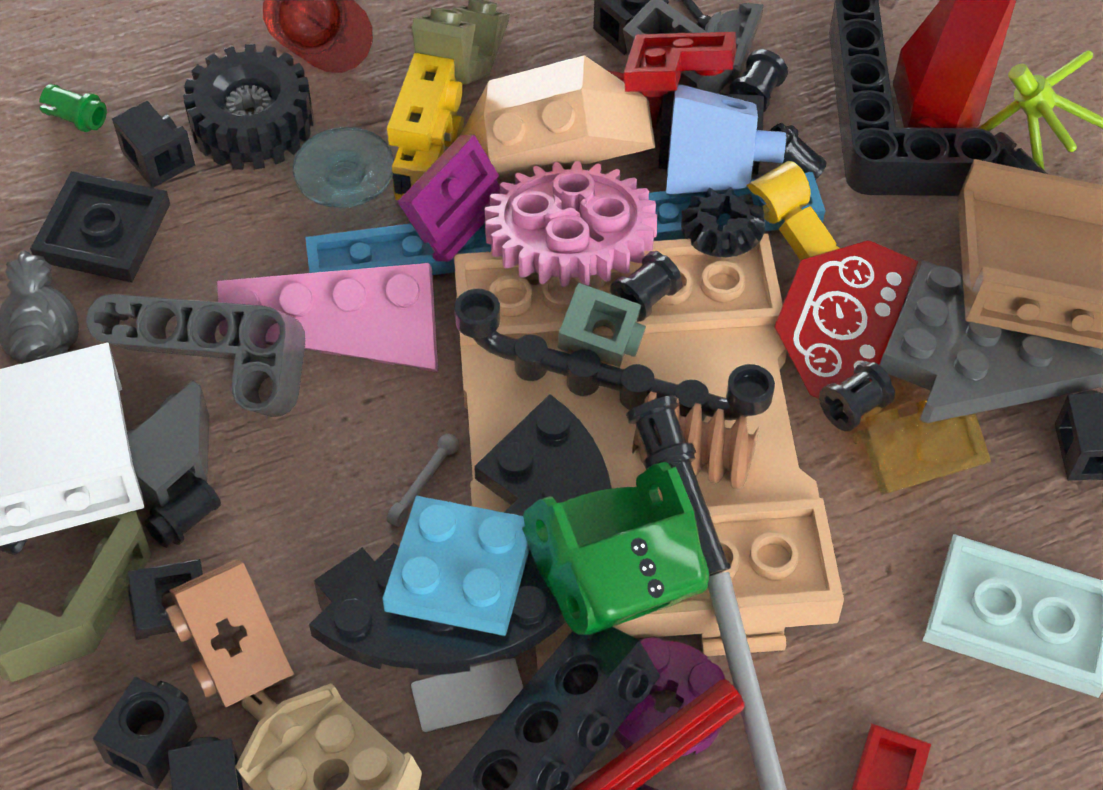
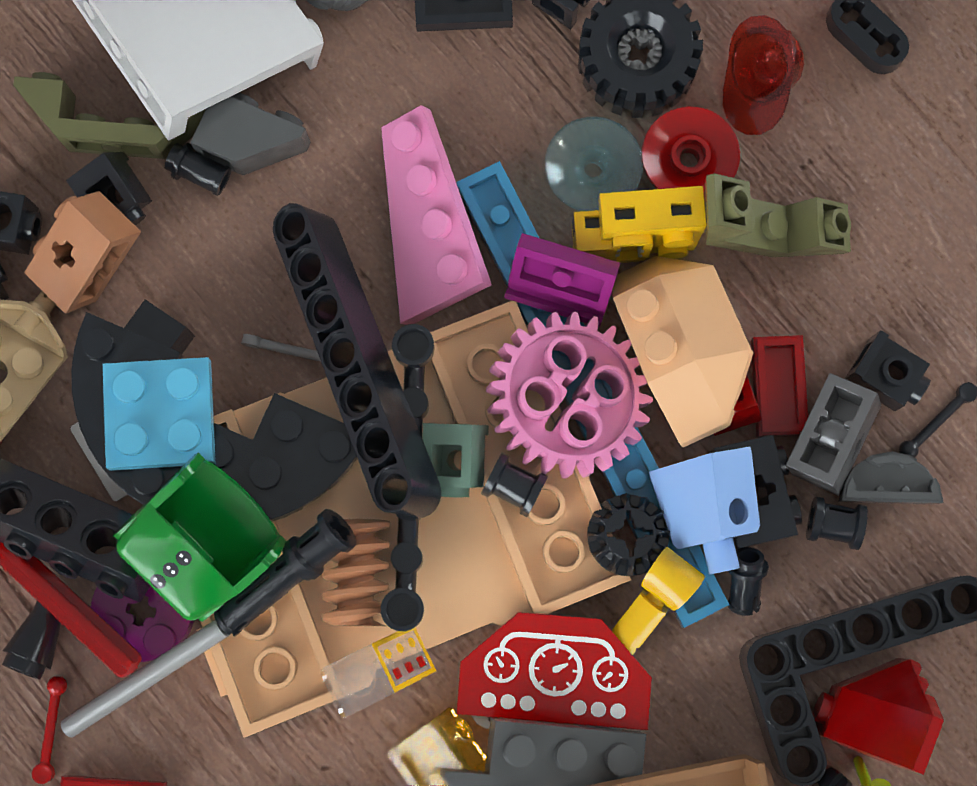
camera: 75 degrees right, 25 degrees up
(196, 337) = (364, 140): dark grey beam -> none
(362, 92) = (693, 132): none -> red dish
(435, 380) = (356, 363): none -> black beam
(660, 58) = (791, 425): red plate -> none
(809, 457) = (377, 671): none -> clear slope
(857, 395) = (466, 720): black bush -> none

